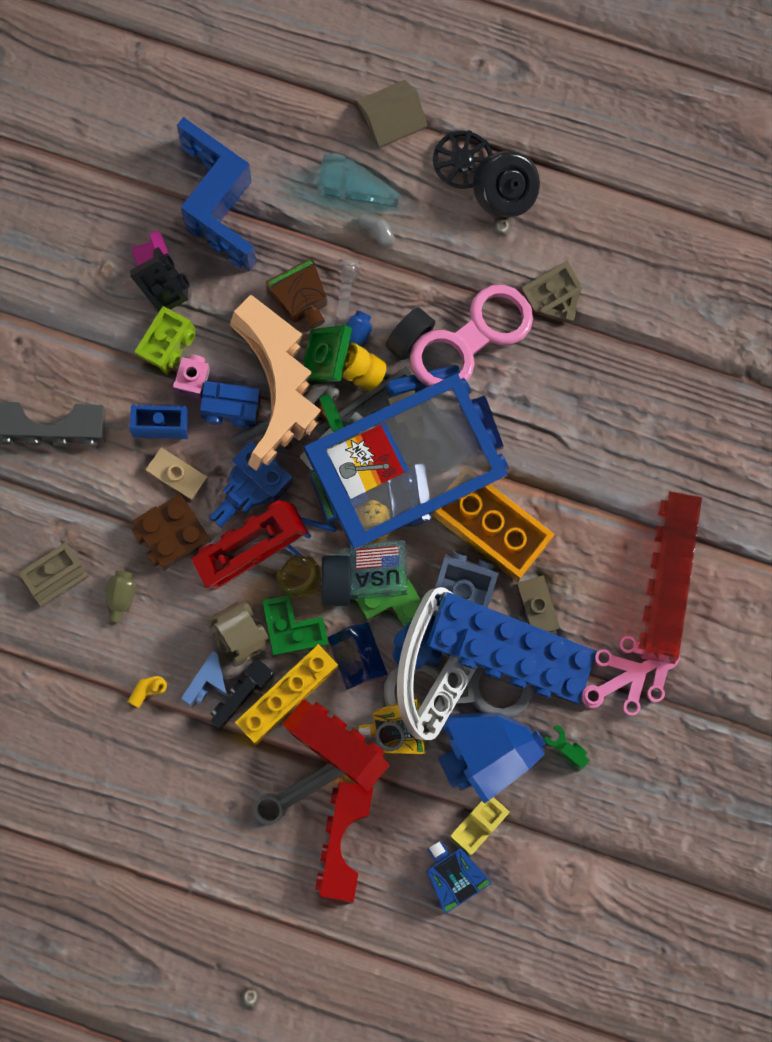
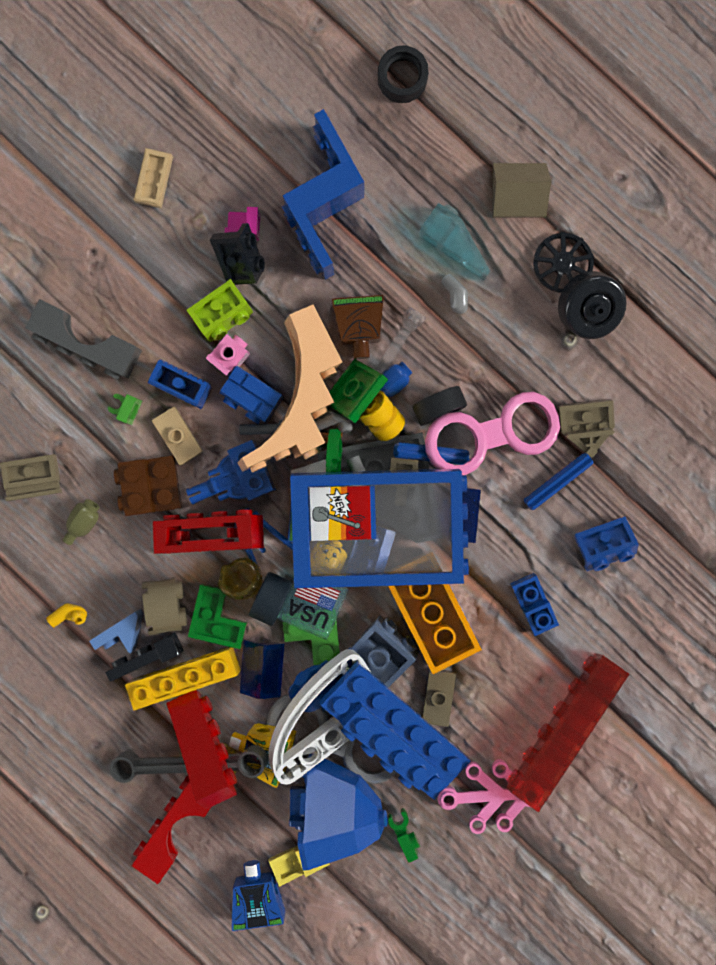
camera: 25 degrees right, 10 degrees up
(47, 248) = (153, 178): none -> tan plate
(118, 468) = (128, 408): none -> bright green tile
(237, 38) = (402, 53): none -> black tyre
(553, 356) = (558, 481): none -> blue axle
(585, 478) = (534, 604): none -> blue slope
(625, 392) = (607, 544): none -> blue bracket

